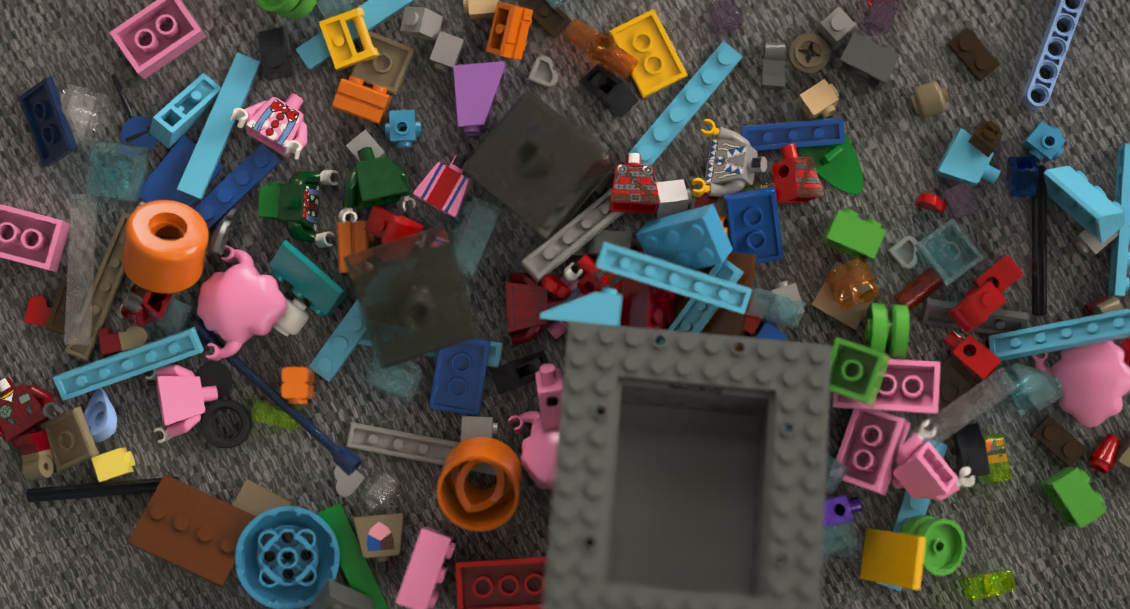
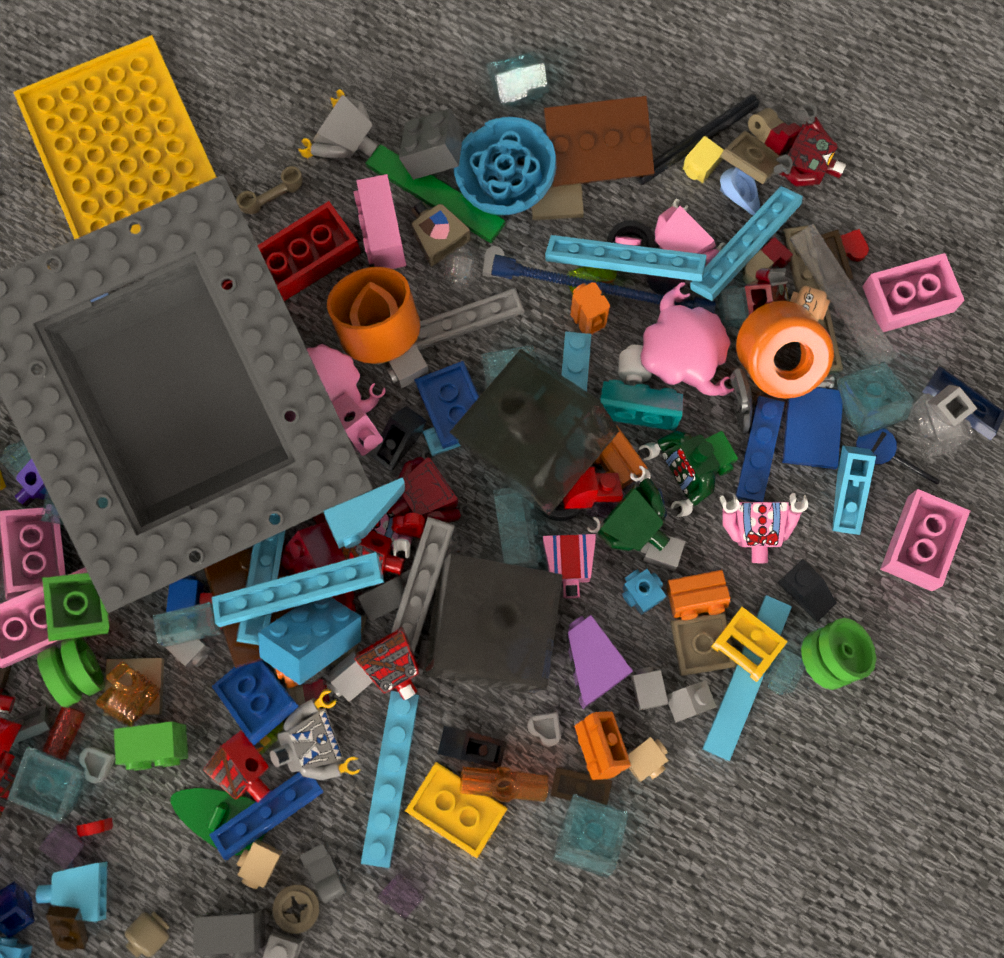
camera: 150 degrees right, 10 degrees down
(70, 113) = (952, 405): none -> light grey brick
(113, 278) = (813, 300): none -> light nougat head
(218, 126) = (810, 482): medium azure tile -> none
(227, 424) = (628, 240): none -> bright pink piece
(240, 408) = (626, 258): none -> medium azure plate

